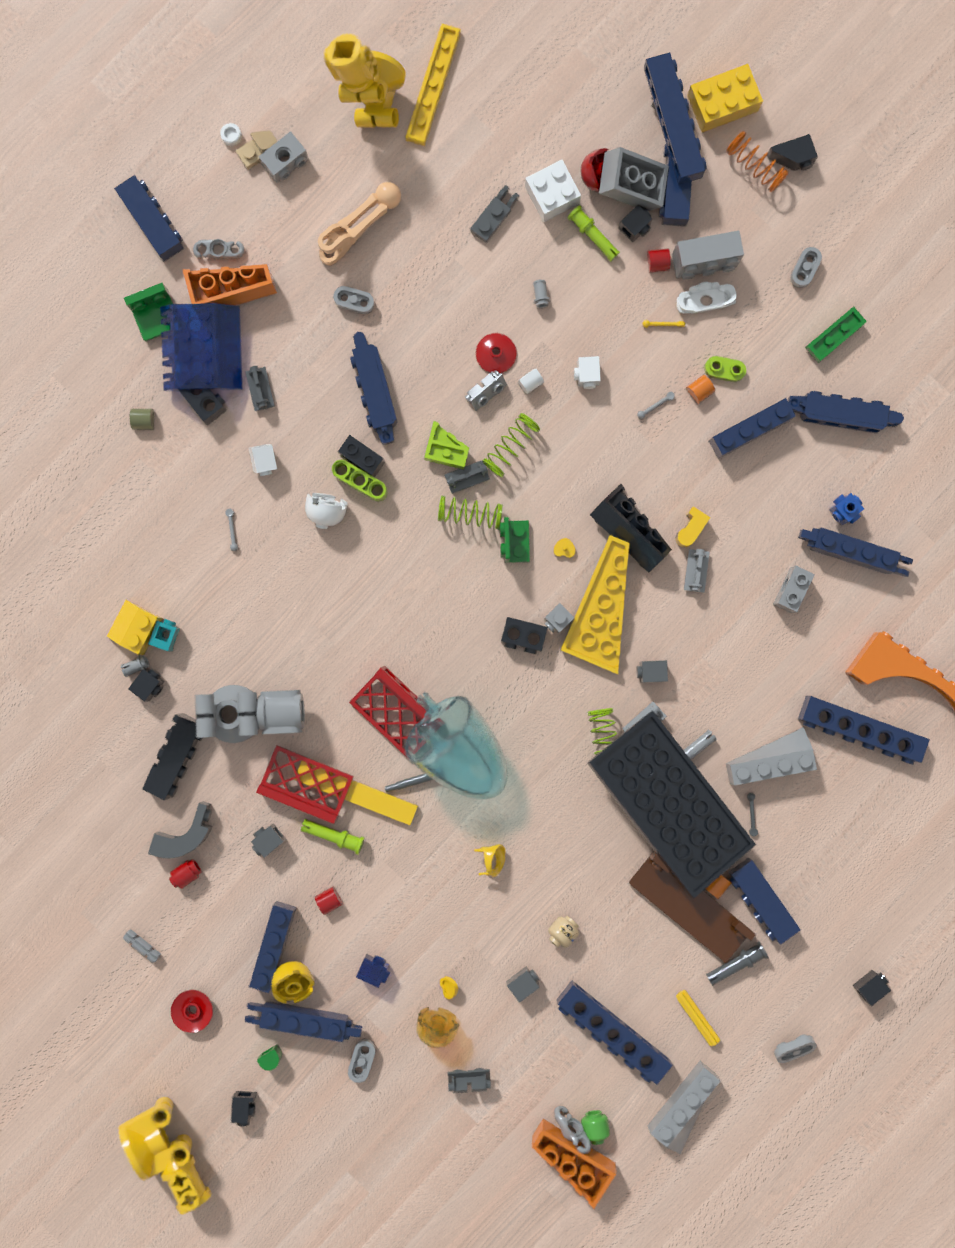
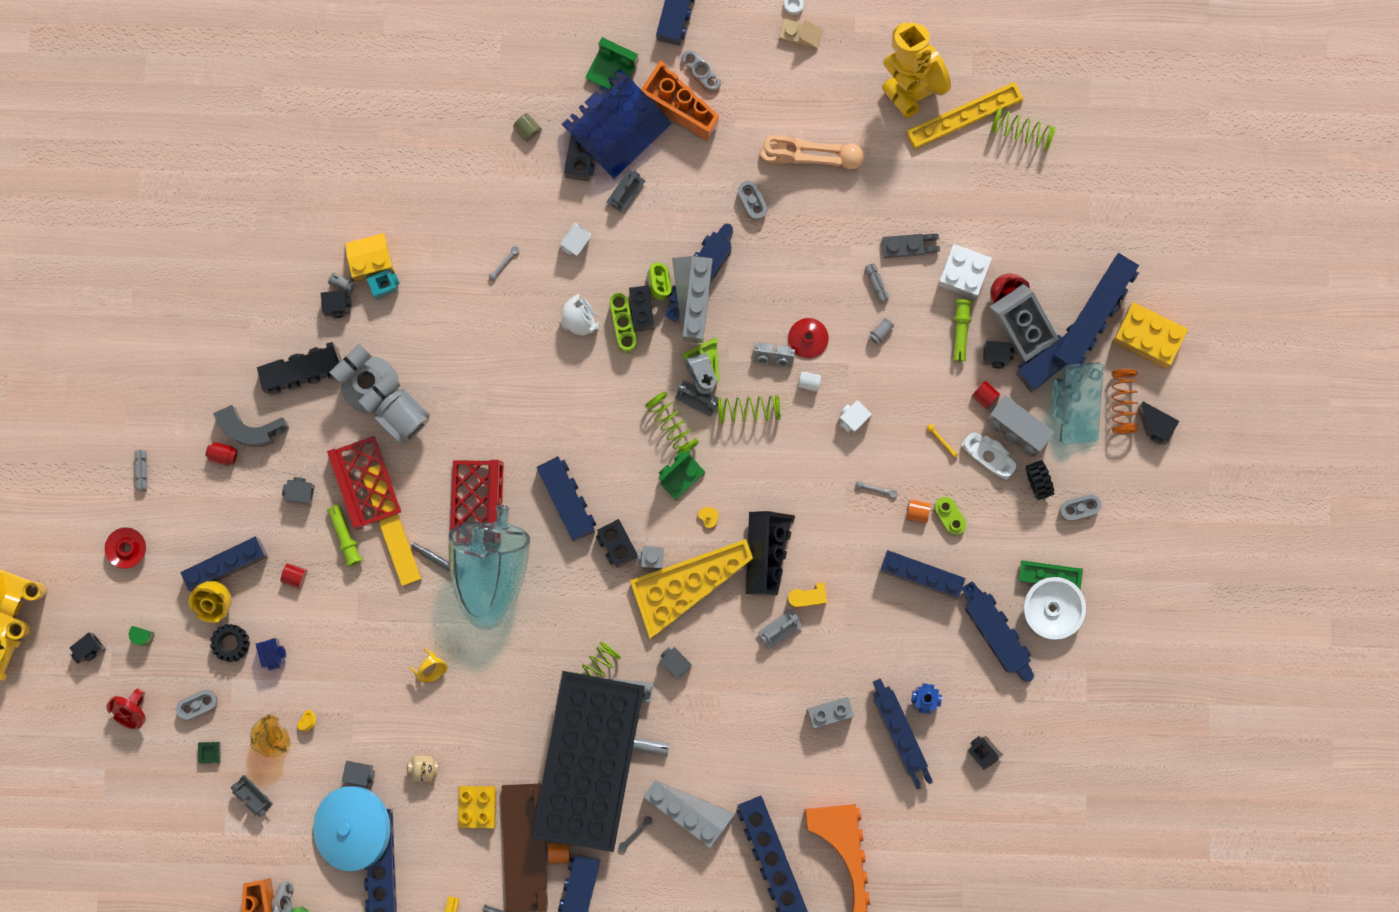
camera: 45 degrees right, 5 degrees down
(285, 146) = (820, 52): light grey brick -> none
(303, 1021) = (189, 636): dark blue hinge -> none
(319, 1120) = (127, 710): none -> red tile
(327, 1003) = (220, 634): none -> black tyre
(352, 424) = (659, 285): none -> lime plate
(381, 401) = (692, 288): none -> light grey wedge
(406, 1082) = (209, 752): none -> dark green tile
(450, 453) = (700, 369): none -> light grey piece
(455, 643) = (566, 499): none -> dark blue brick
(500, 264) = (877, 282): none -> light grey axle
(505, 29) = (1049, 138): none -> lime piece
(562, 1026) = (351, 828): none -> medium azure dish
(628, 915) = (477, 807): none -> yellow hinge
(728, 196) = (1078, 402): none -> clear light blue bracket
(760, 277) = (1040, 480): none -> black tyre
(877, 350) = (1068, 613): none -> white dish
(931, 504) = (982, 759): none -> black brick

